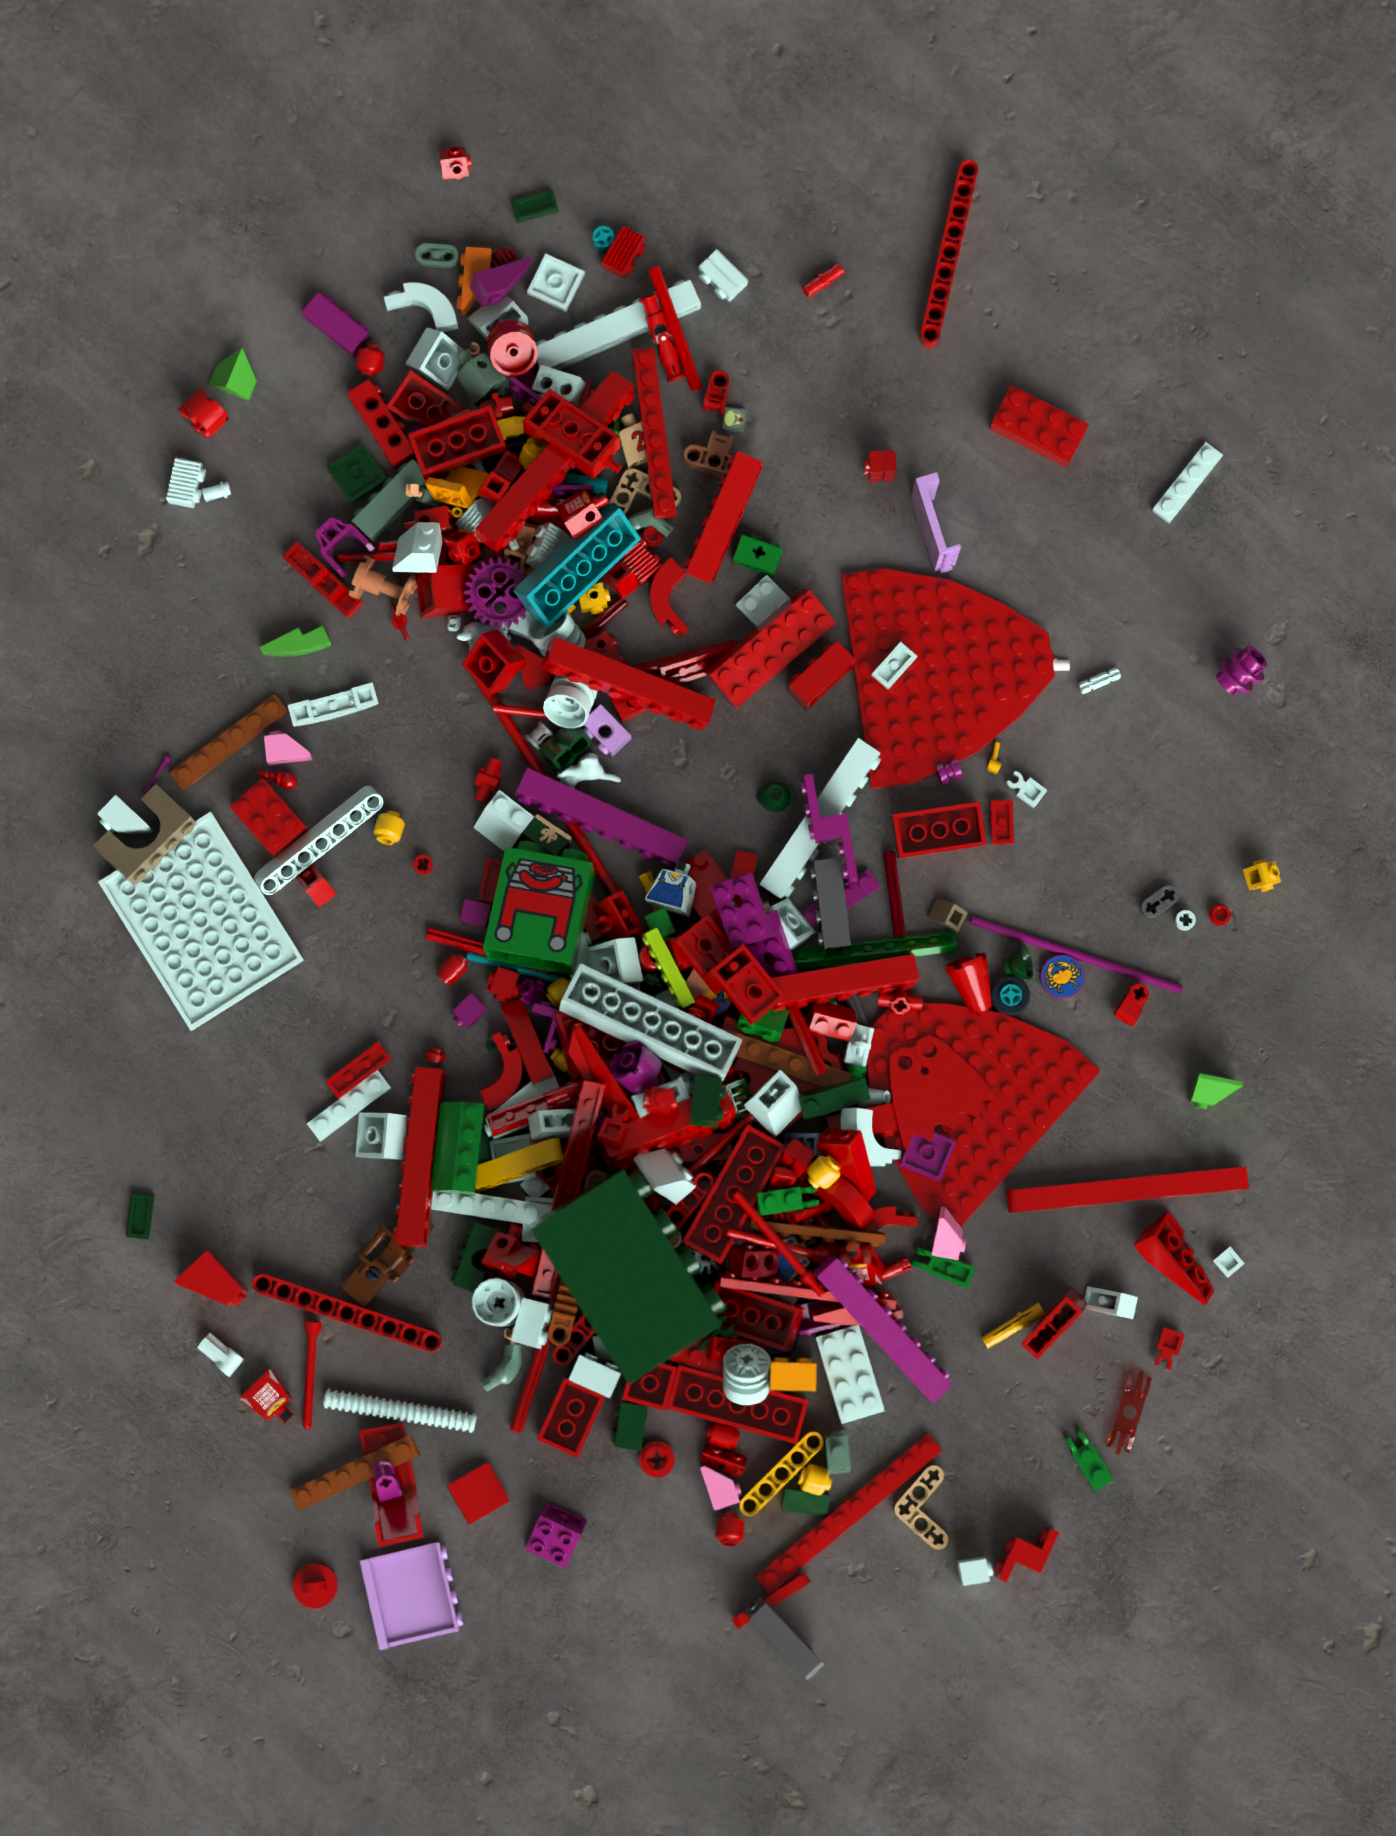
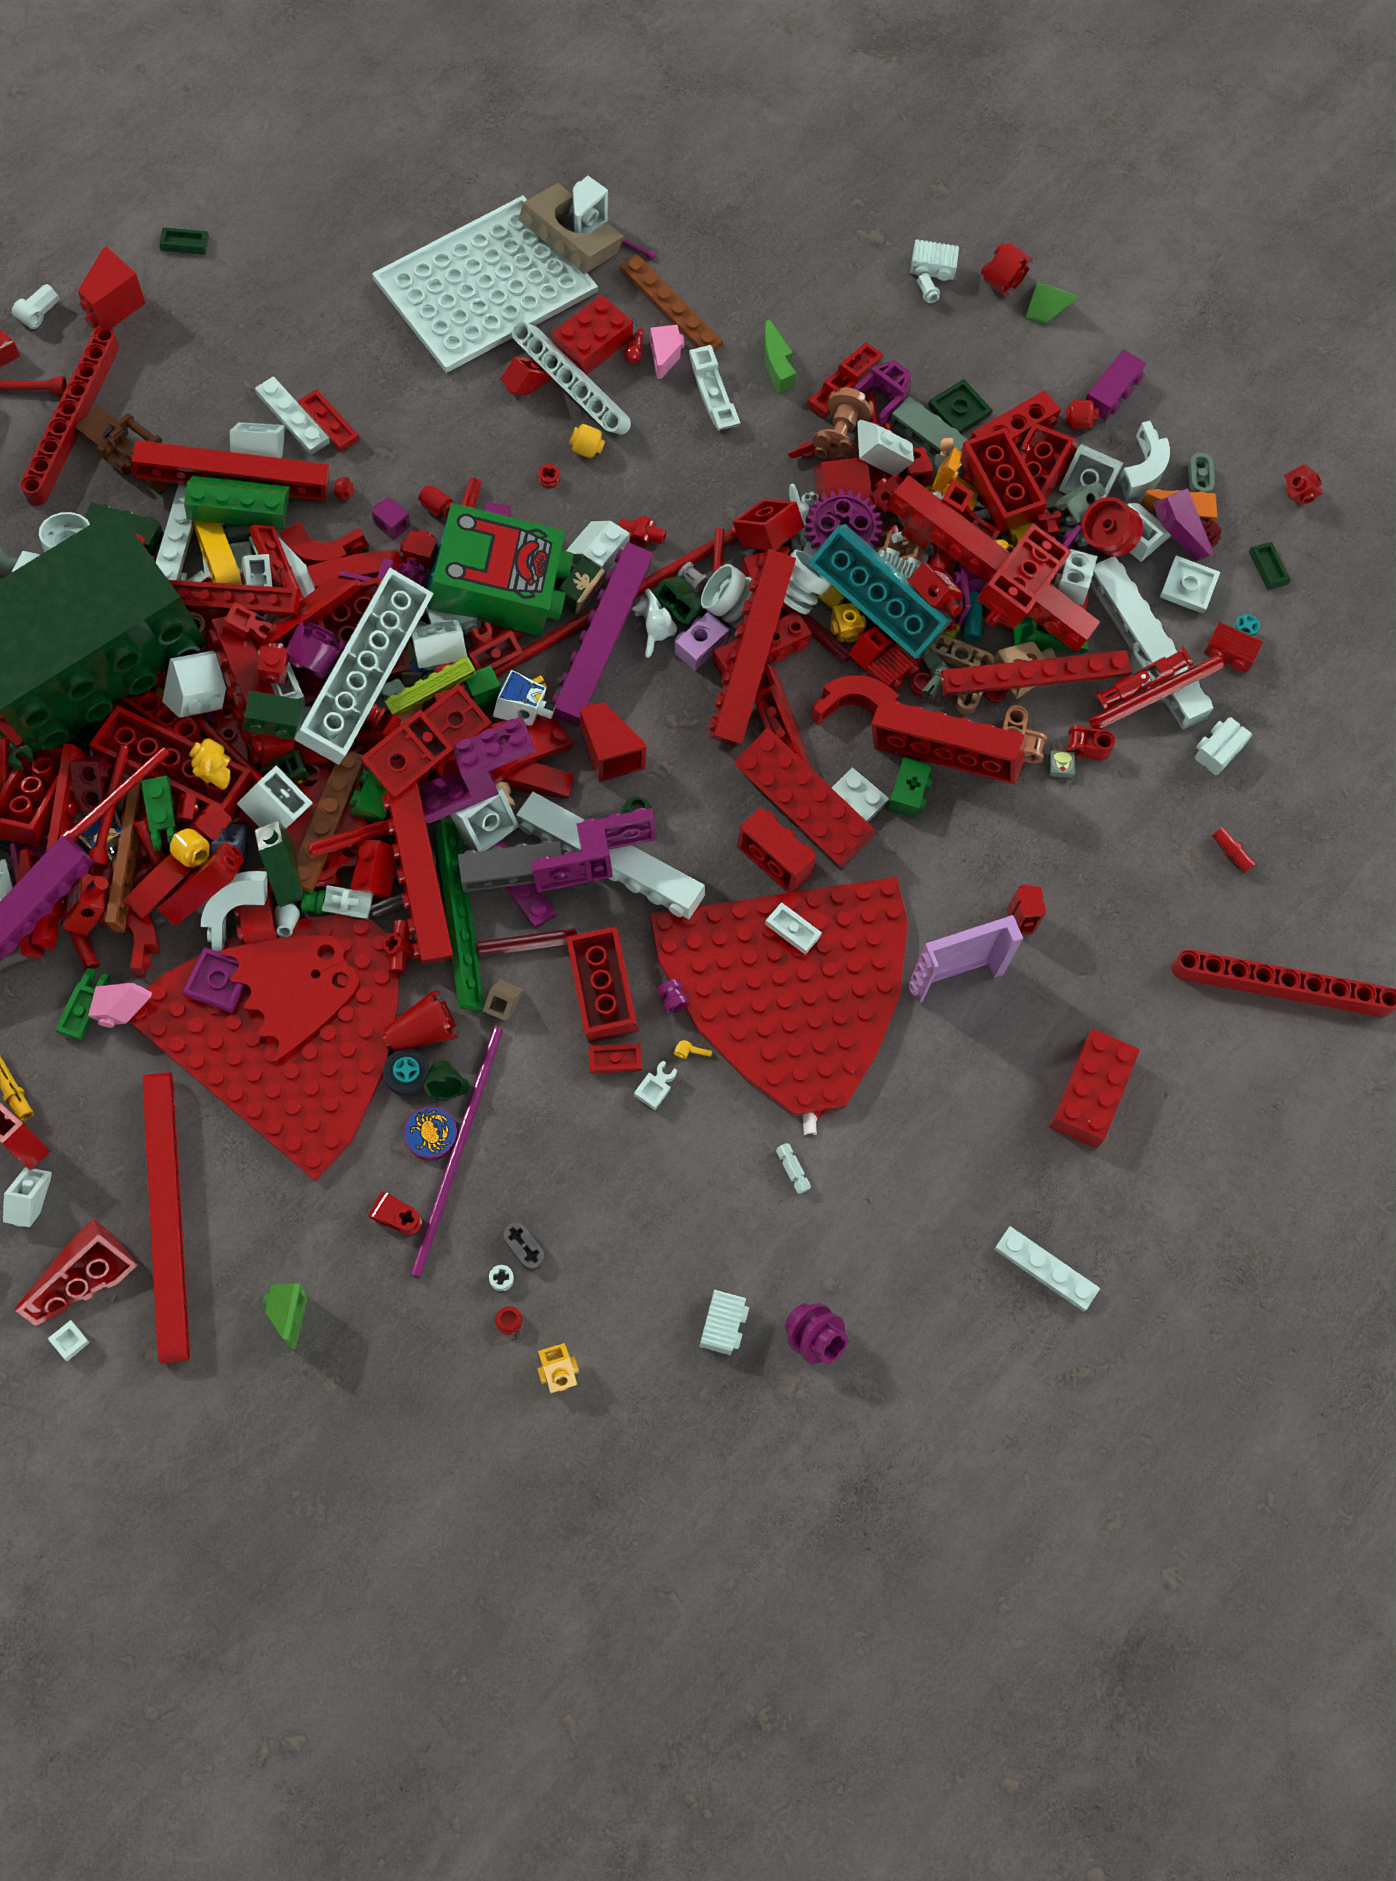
camera: 80 degrees right, 15 degrees down
(712, 816) = (610, 743): none -> red slope
(747, 1154) = (211, 763): none -> yellow head
(1227, 743) = (723, 1323): none -> light aqua brick

